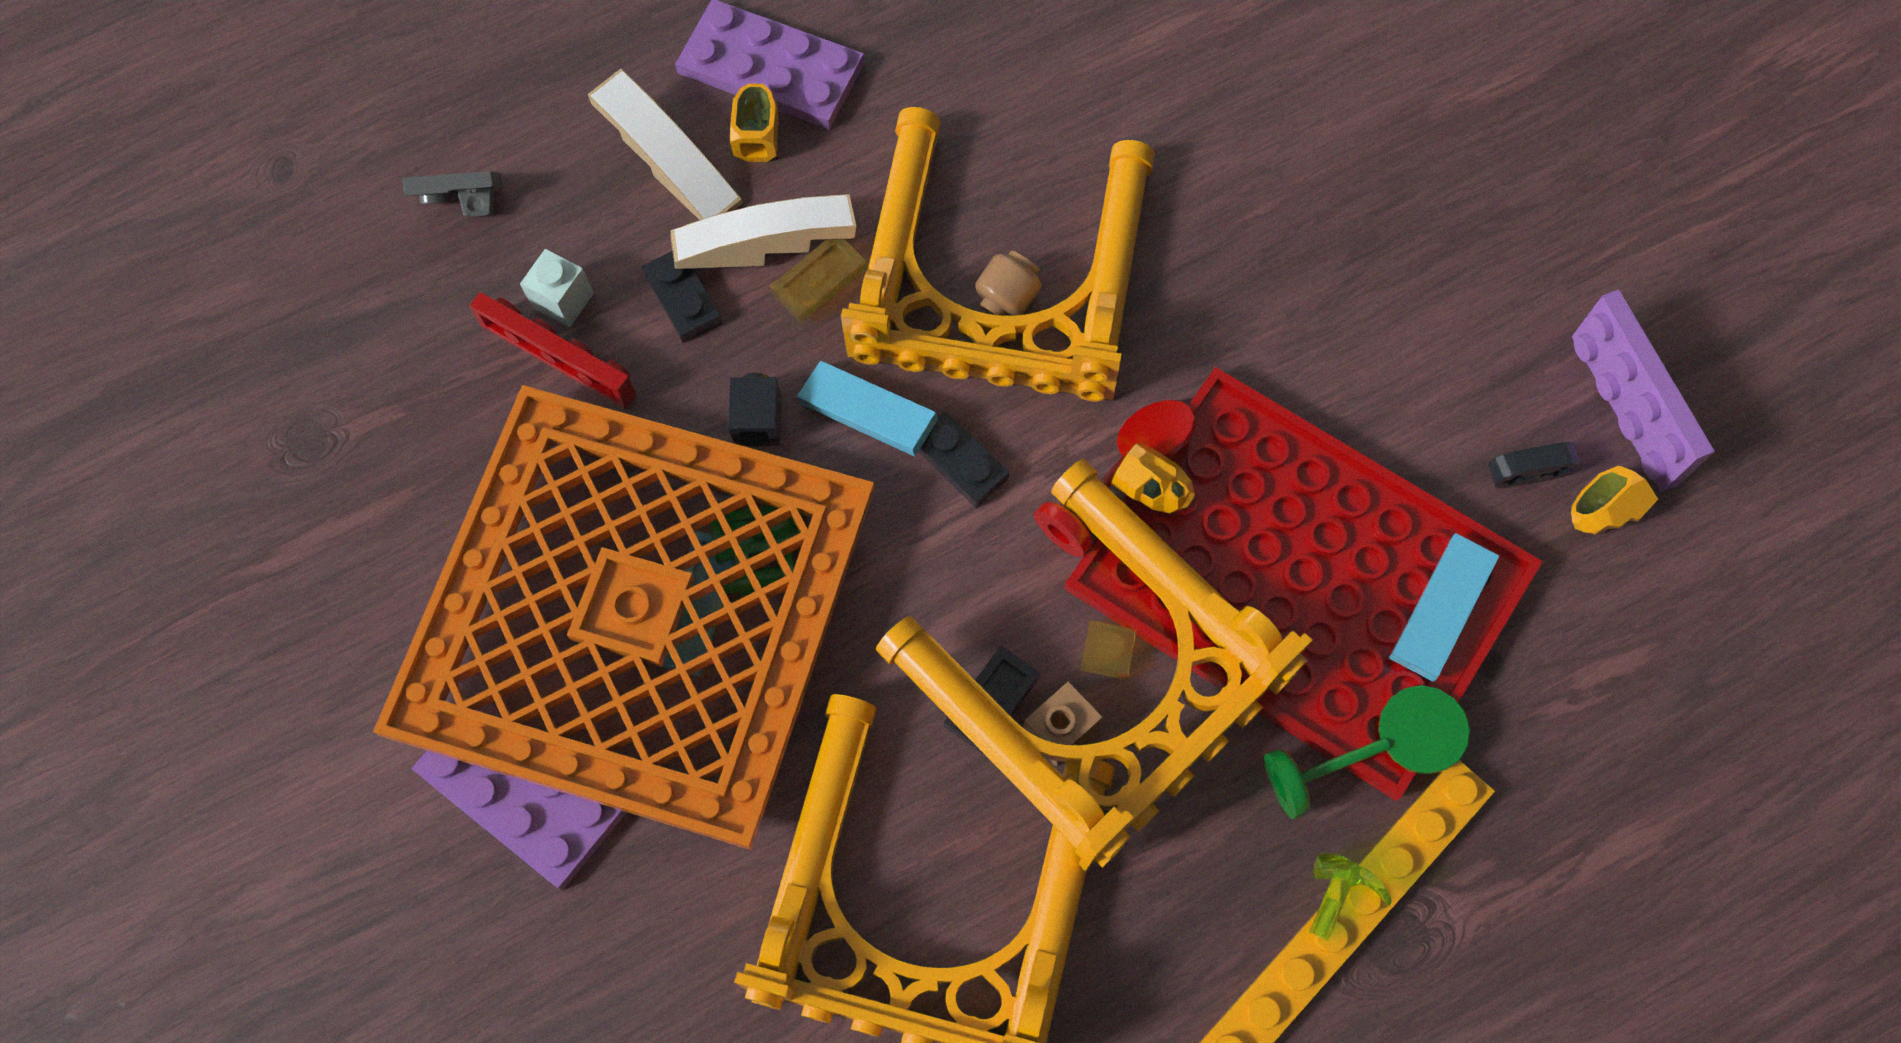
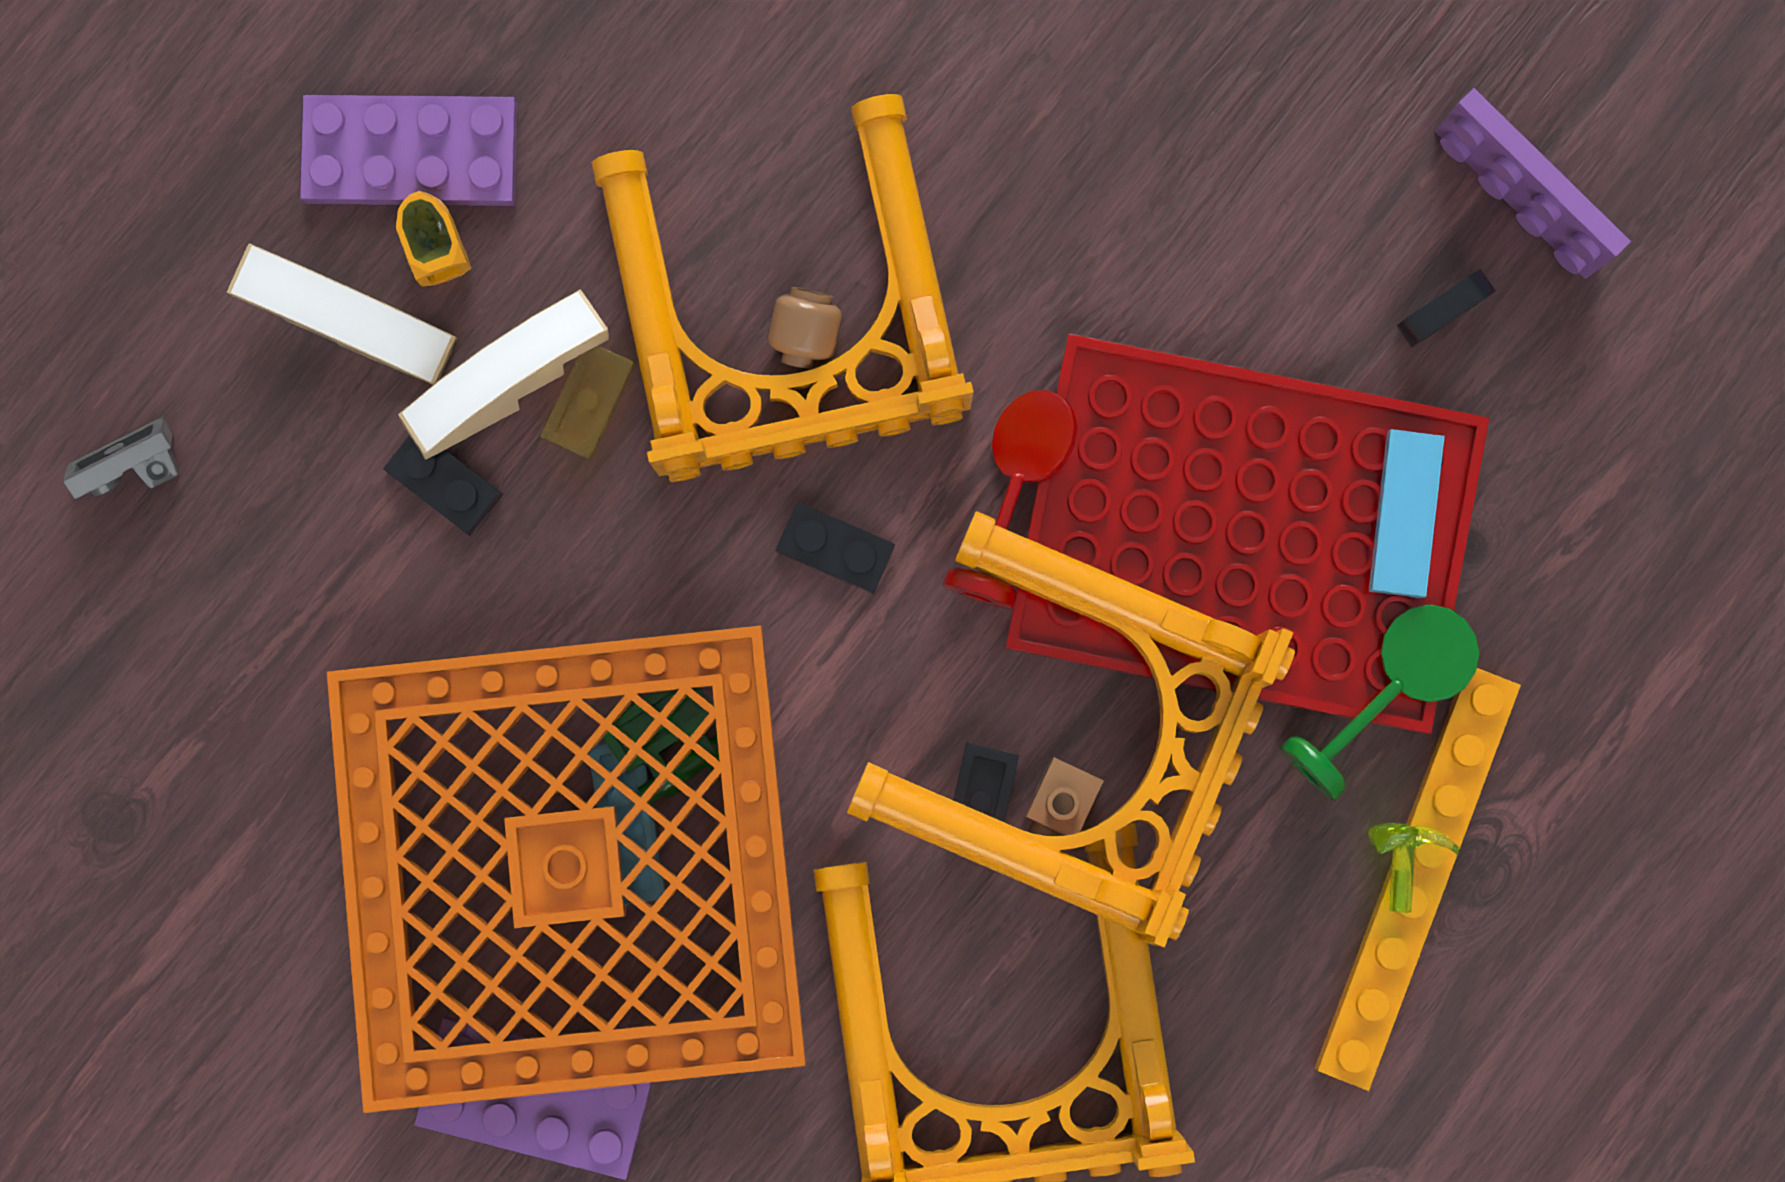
camera: 25 degrees left, 15 degrees up
(542, 342) = (312, 602): red plate -> none
(557, 288) = (303, 536): light aqua brick -> none
(755, 410) = (590, 587): black brick -> none
(867, 408) = (711, 534): medium azure tile -> none
(1108, 650) = (1077, 695): clear yellow plate -> none
(1154, 480) = (1058, 501): light orange rock -> none
(1612, 501) = (1538, 320): light orange rock -> none

